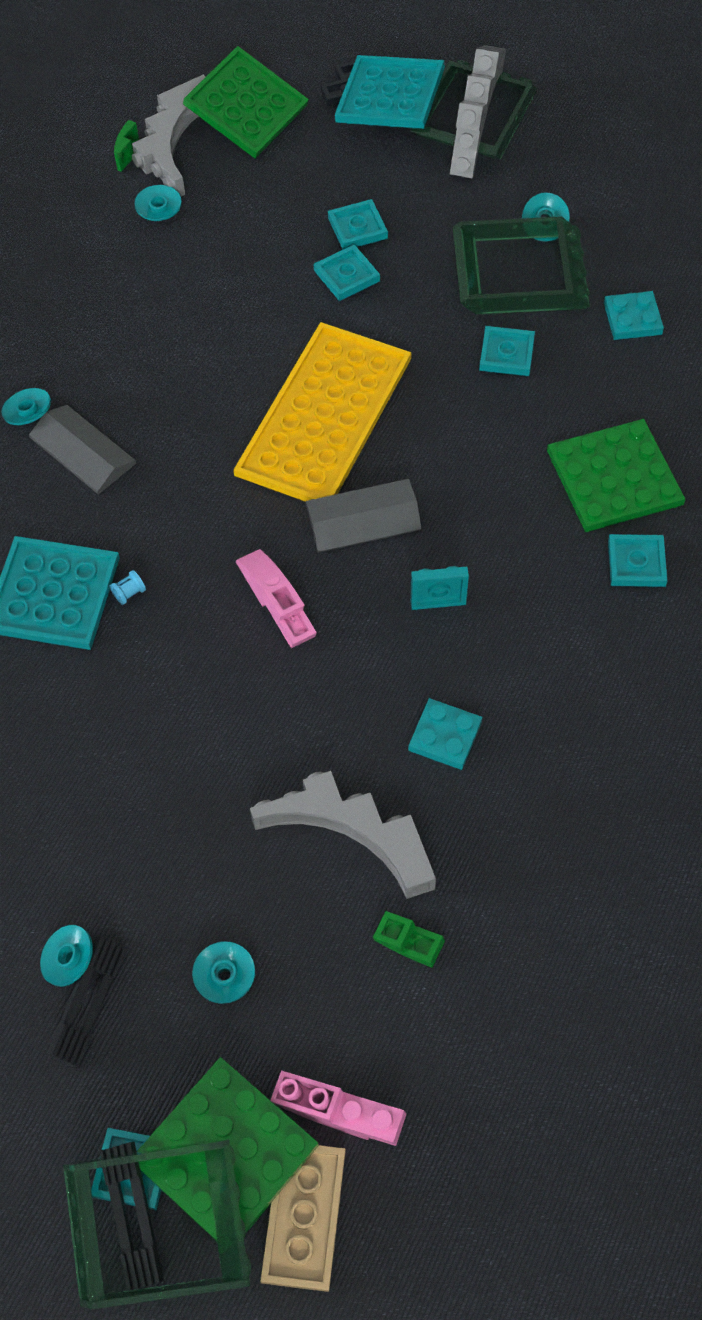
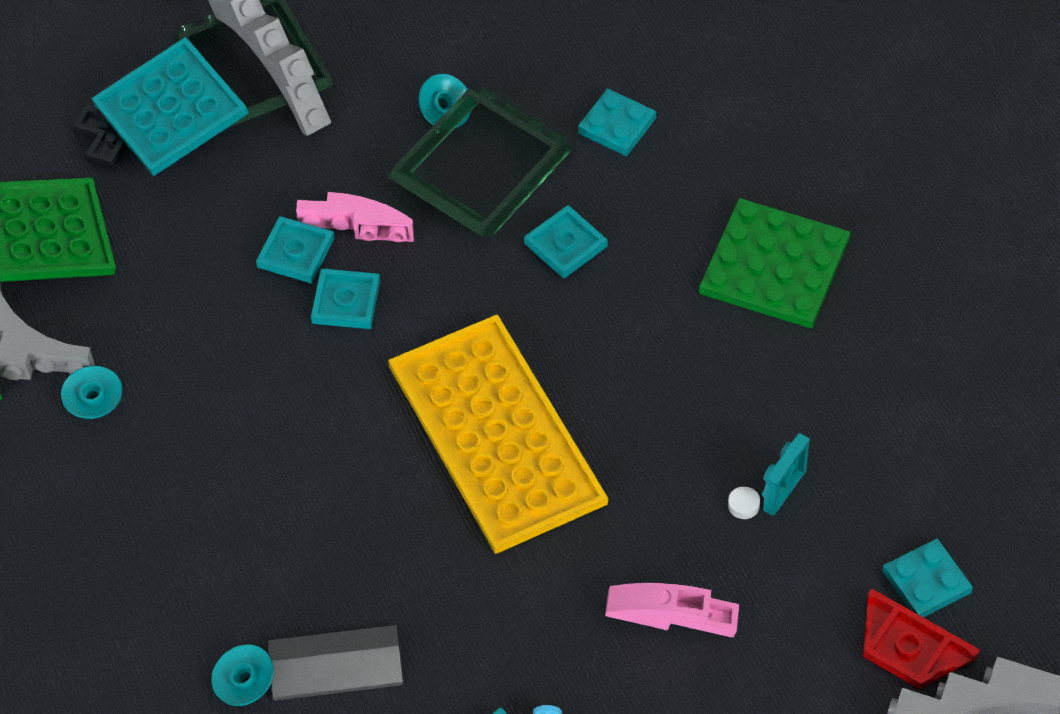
camera: 50 degrees left, 5 degrees down
(363, 515) = (644, 479): dark grey slope -> none
(379, 757) = (911, 644): none -> red wing
(400, 584) = (744, 502): none -> white tile
(413, 234) = (366, 216): none -> bright pink slope
(637, 560) = (881, 311): teal plate -> none

